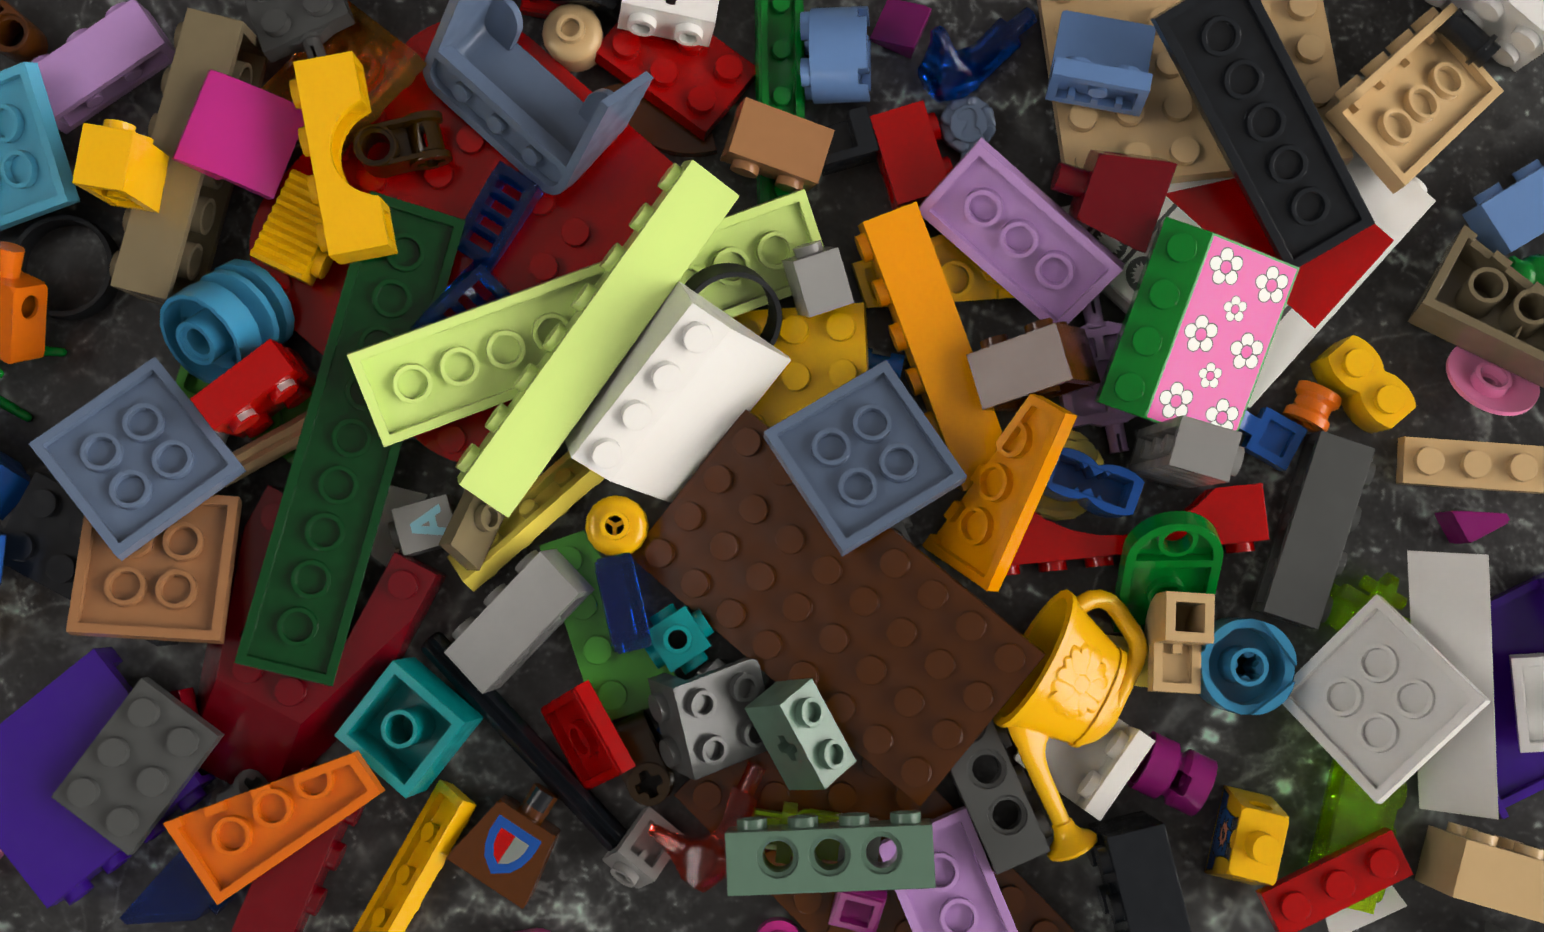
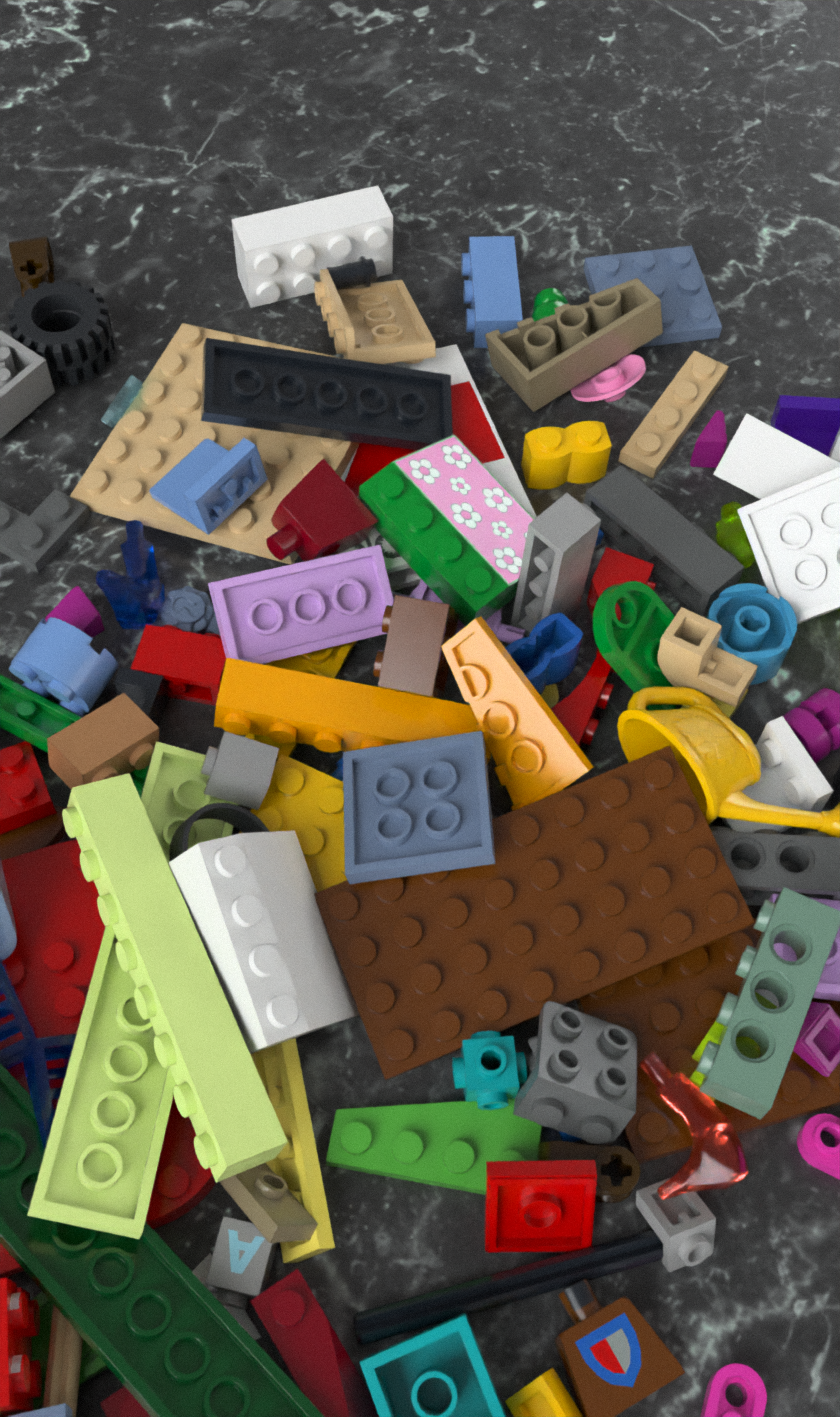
camera: 60 degrees left, 25 degrees down
(517, 619) = (386, 1217): light grey brick -> none
(622, 603) = (427, 1100): clear blue slope -> none
(632, 517) = (353, 1087): yellow head -> none
(800, 734) = (638, 993): sand green brick -> none
(1312, 406) = (557, 485): orange wheel -> none

